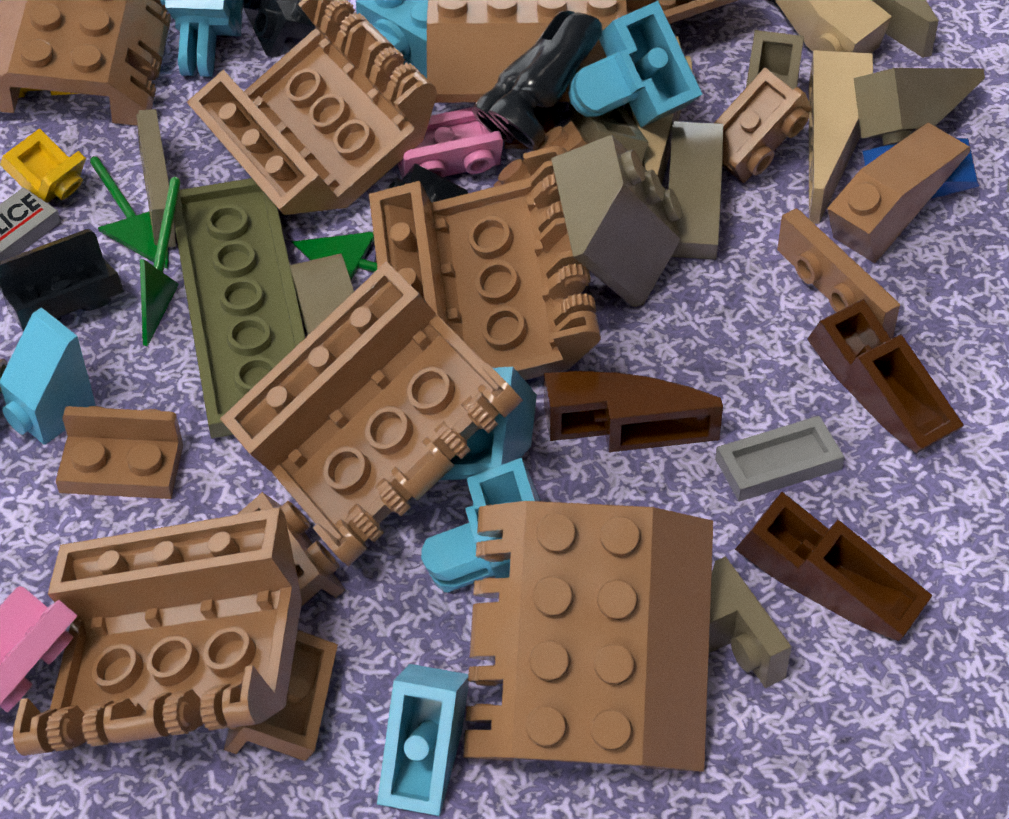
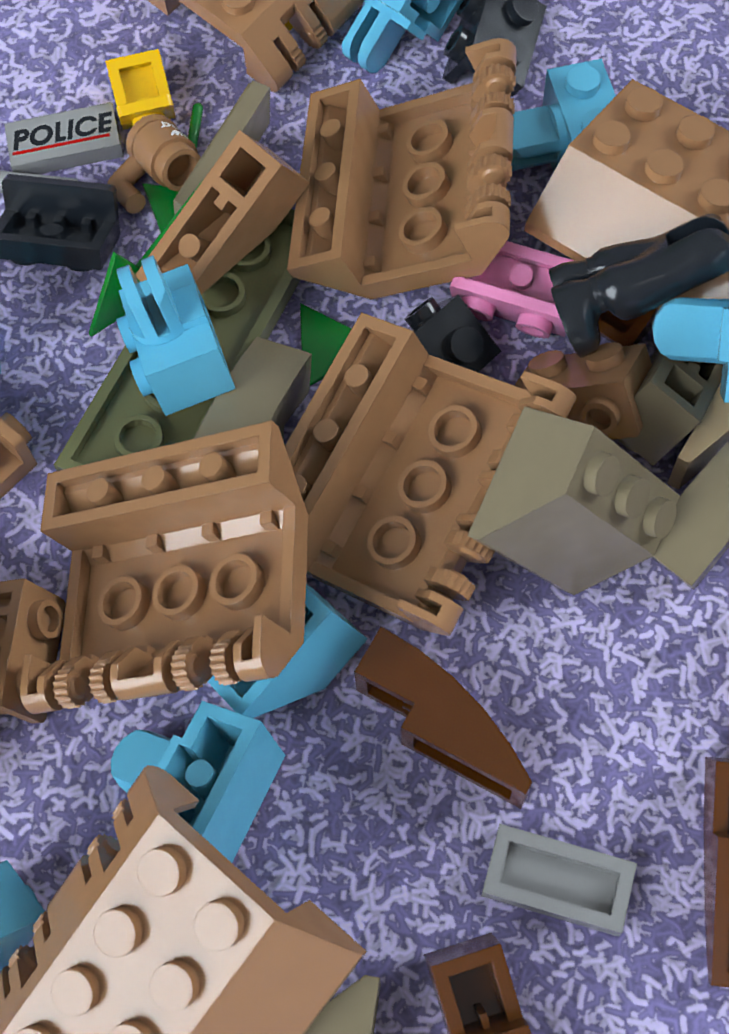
camera: 40 degrees right, 15 degrees up
(103, 196) = (155, 149): none -> medium nougat piece
(204, 202) = (229, 212): none -> medium nougat slope
(240, 279) = (172, 337): none -> medium azure brick

